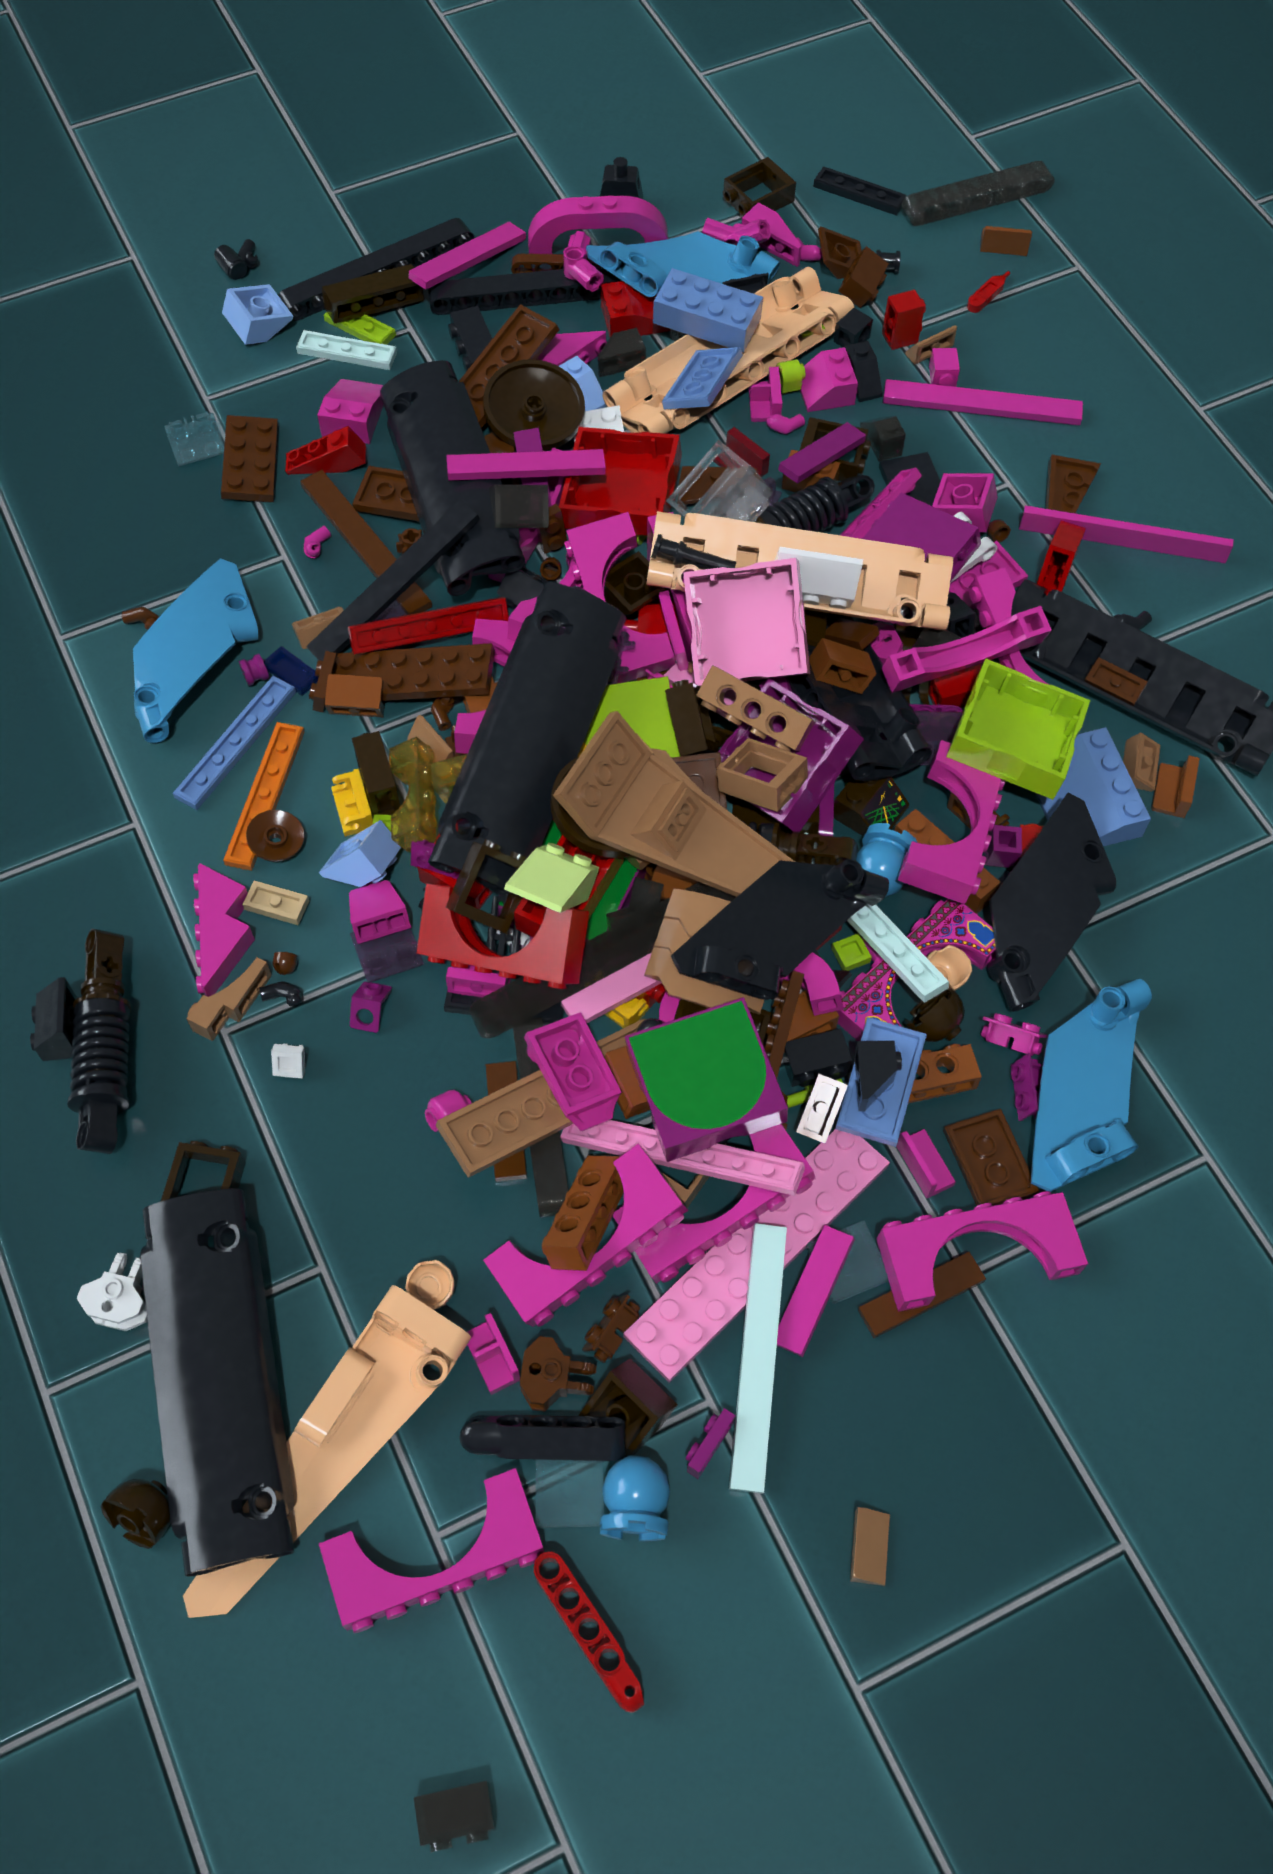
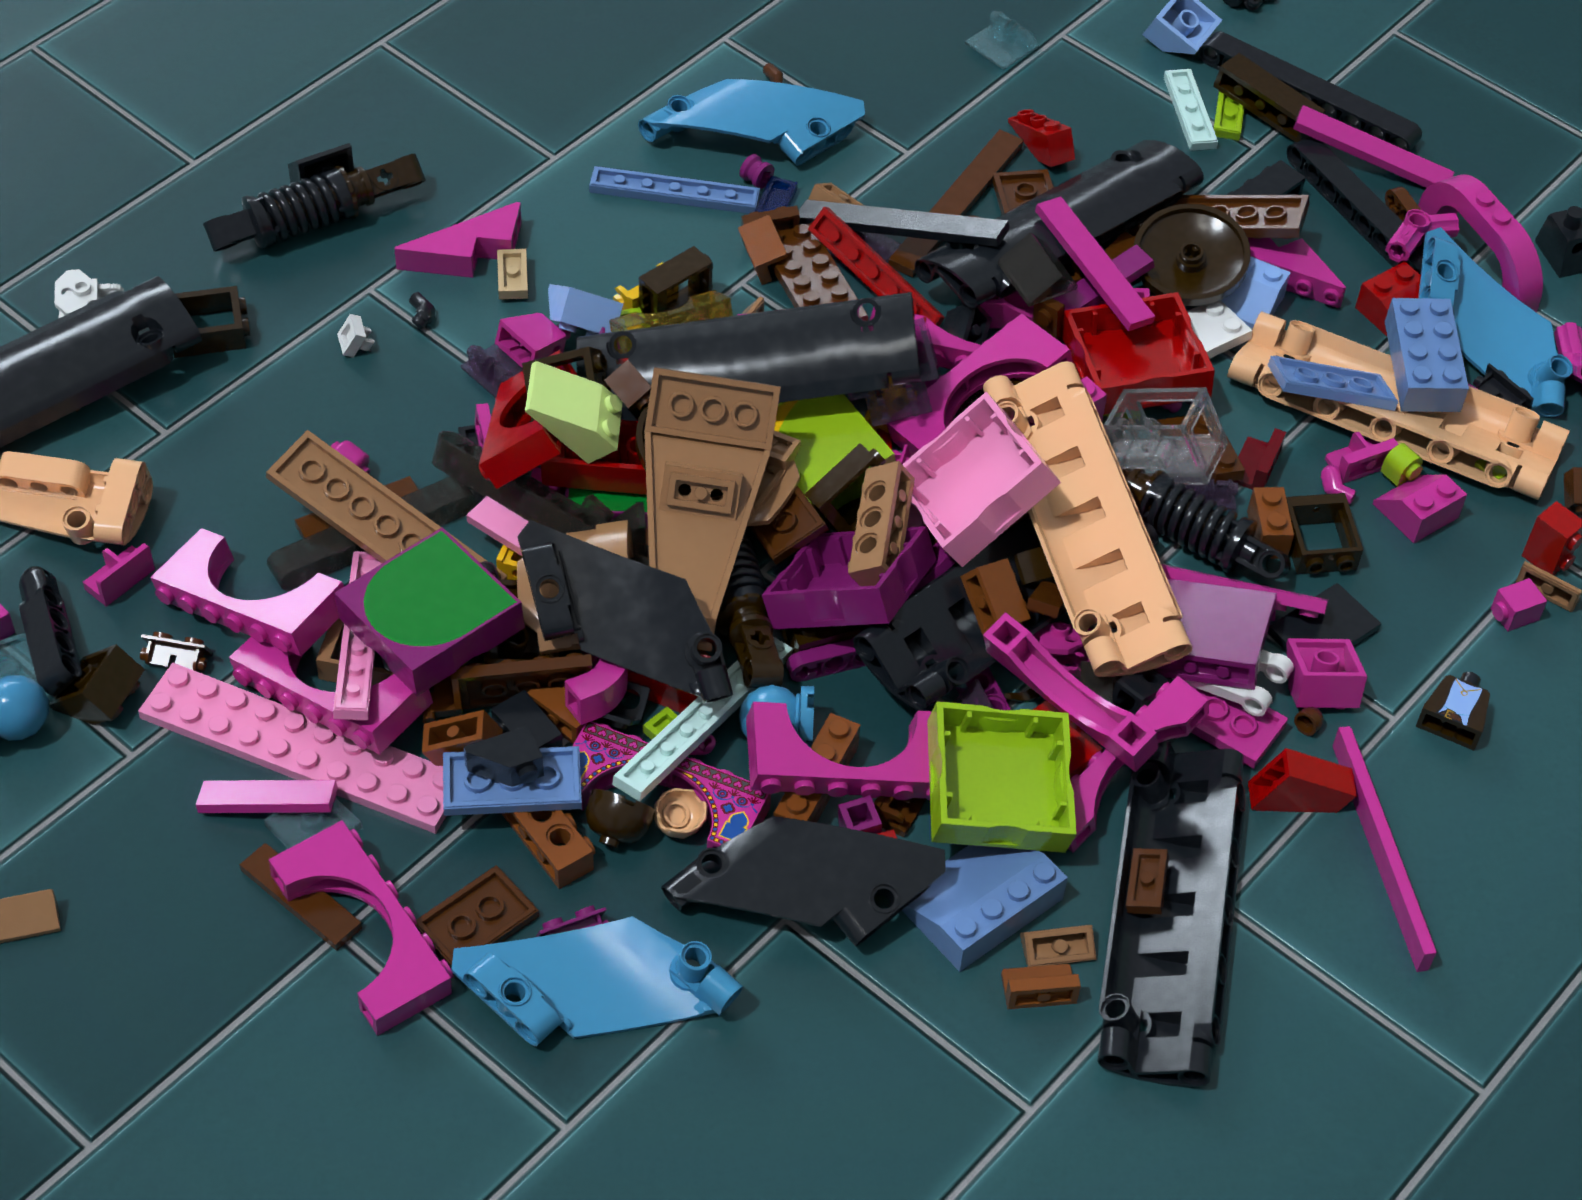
camera: 65 degrees right, 10 degrees down
(232, 1002) = (398, 280): medium nougat slope -> none
(249, 458) = (1004, 86): reddish brown plate -> none
(265, 790) = (627, 229): orange tile -> none
(272, 825) = (581, 238): reddish brown dish -> none
(284, 962) = (452, 302): reddish brown hinge -> none
(313, 542) = (933, 164): dark pink arm -> none
(351, 405) = (1106, 129): dark pink slope -> none
(369, 997) = (438, 367): magenta bracket -> none
(431, 1283) = (168, 505): light nougat hair -> none
(534, 831) = (630, 387): none -> reddish brown brick
(554, 1374) = (108, 615): reddish brown hinge -> none
(575, 1070) = (408, 515): dark pink slope -> none
(584, 1215) = (253, 575): dark orange brick -> none
(621, 353) = (1333, 313): clear smoke slope -> none
(680, 553) = (1031, 400): black pin -> none
(716, 1430) = (83, 759): magenta plate -> none
(758, 1359) = (181, 770): light aqua tile -> none
(787, 766) = (802, 537): medium nougat window -> none
(822, 452) = (1289, 509): magenta tile -> none
(826, 576) = (1070, 525): white slope -> none
(853, 328) = (1515, 505): black brick -> none
(866, 370) = (1457, 529): black slope -> none
(869, 803) = (856, 695): dark brown slope -> none
(885, 436) = (1374, 576): clear smoke slope -> none
(925, 1163) = (445, 856): dark pink panel -> none
(983, 402) = (1500, 663): dark pink tile -> none
(1023, 441) = (1456, 710): none -> dark brown torso
(1025, 1036) = (631, 893): dark pink hinge -> none
(1068, 482) = (1423, 773): reddish brown wing -> none
(1137, 622) = (1252, 886): black arm -> none

